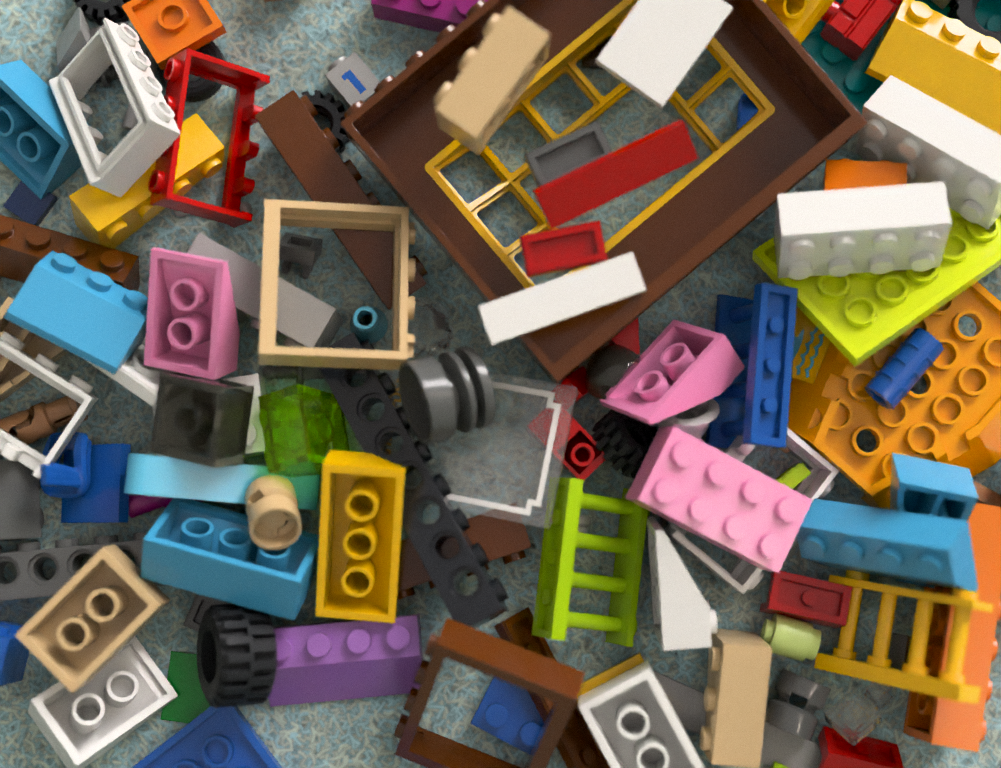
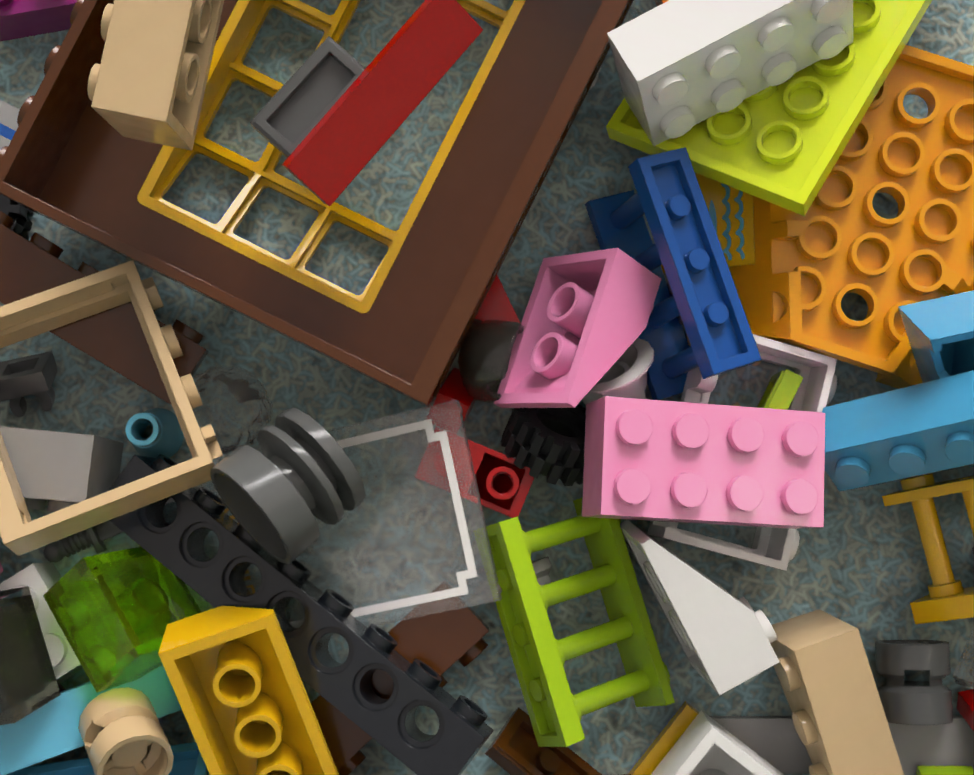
camera: 25 degrees left, 0 degrees up
(562, 298) = (383, 292): white tile -> none
(563, 249) = (357, 225): red tile -> none
(791, 637) = (869, 597): yellowish green brick -> none
(808, 599) = (870, 540): red panel -> none
(904, 368) = (864, 192): blue axle -> none

